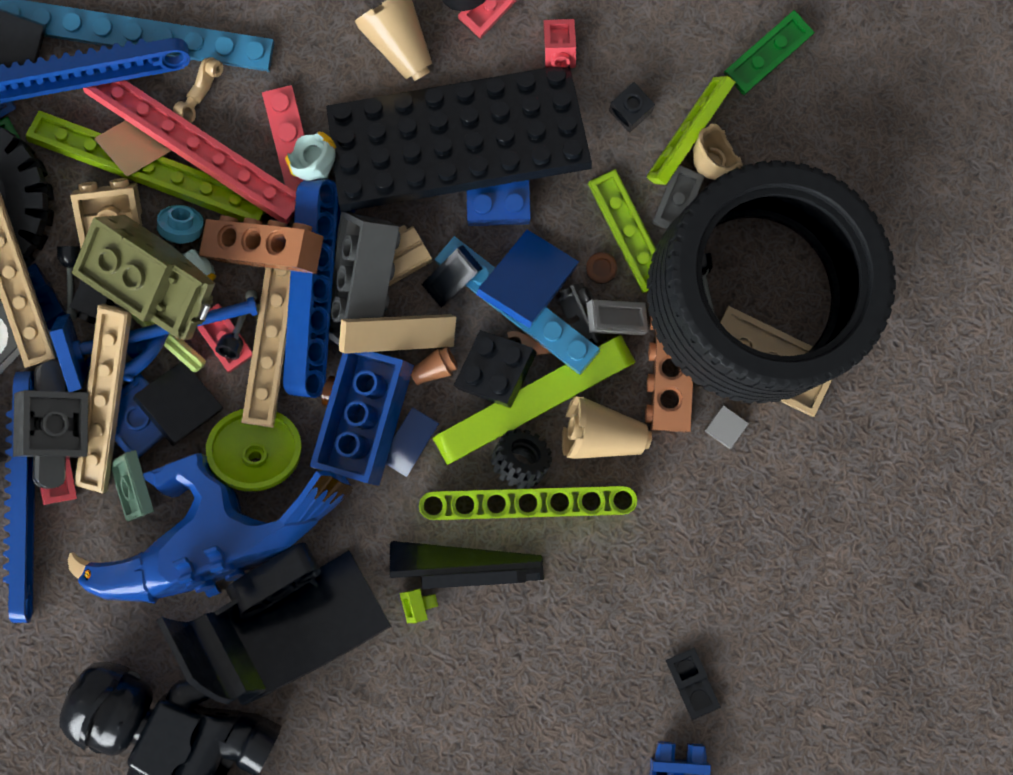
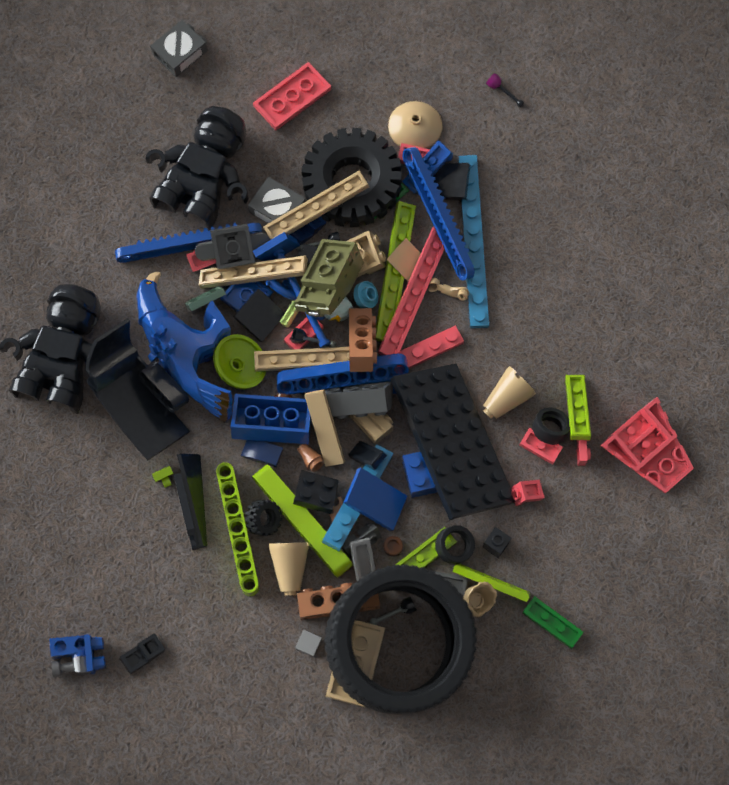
camera: 80 degrees right, 15 degrees down
(312, 157) = (420, 358): light aqua hair -> none
(634, 154) = (468, 540): none -> black tyre

